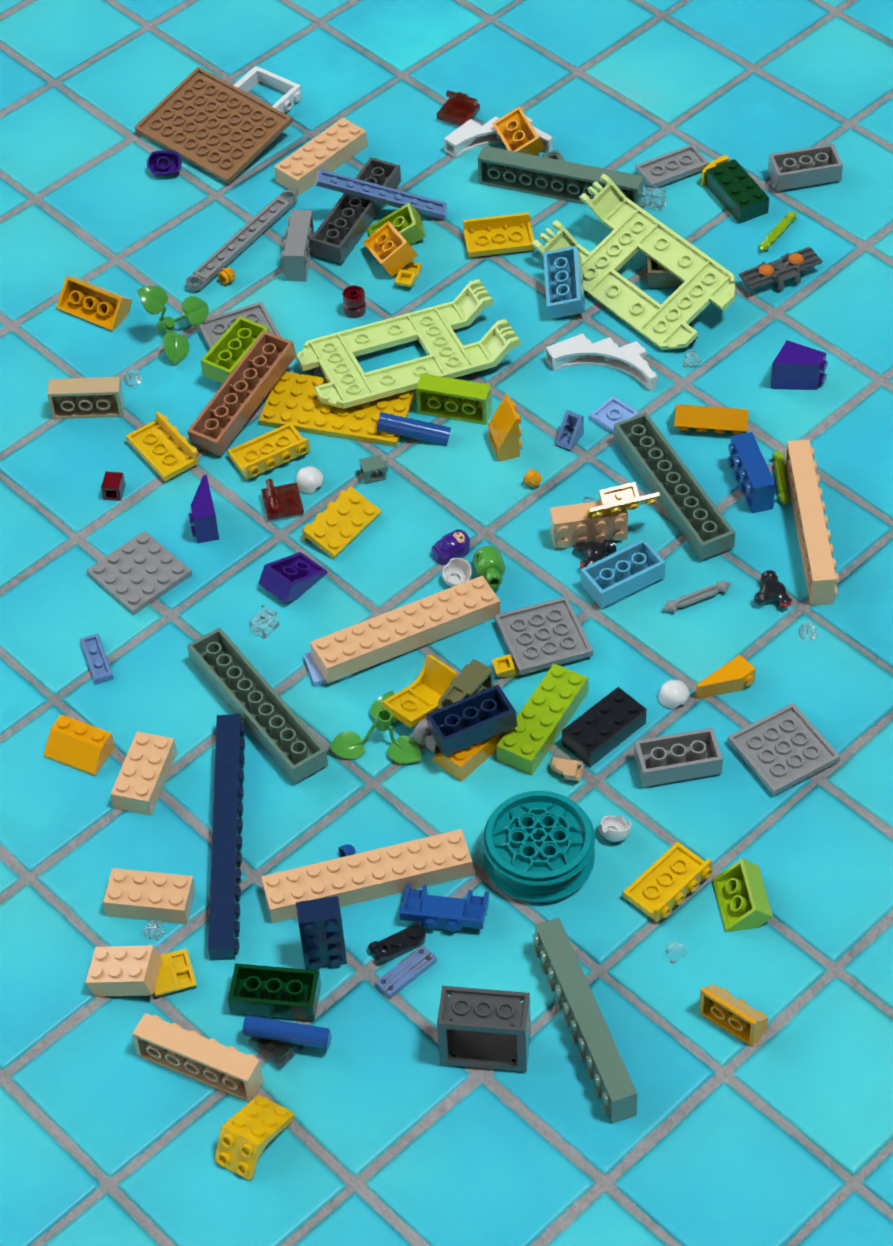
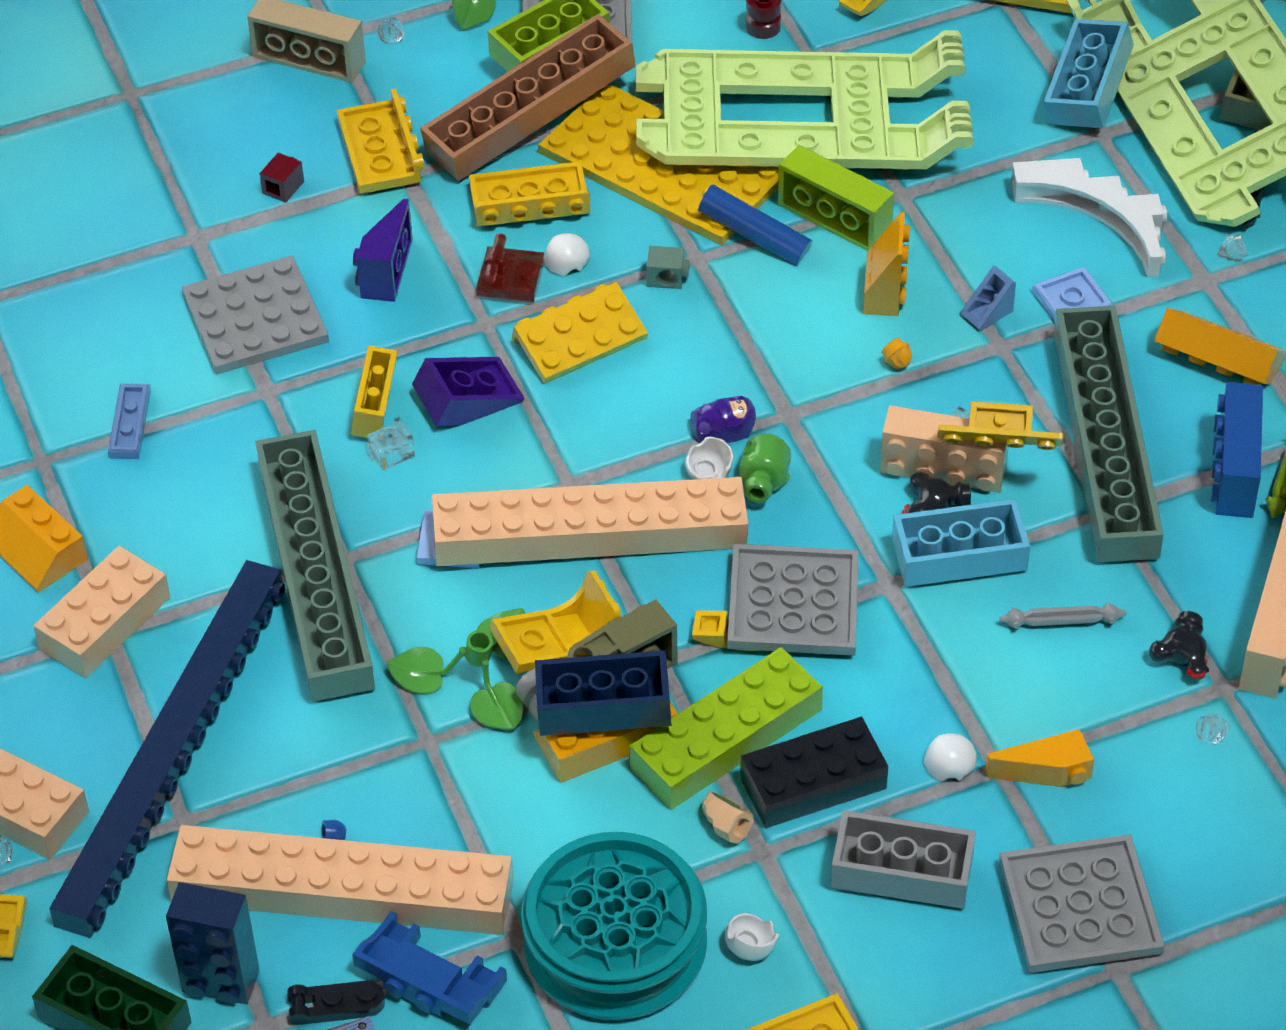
camera: 20 degrees right, 0 degrees up
(239, 594) = (373, 391): none -> yellow brick

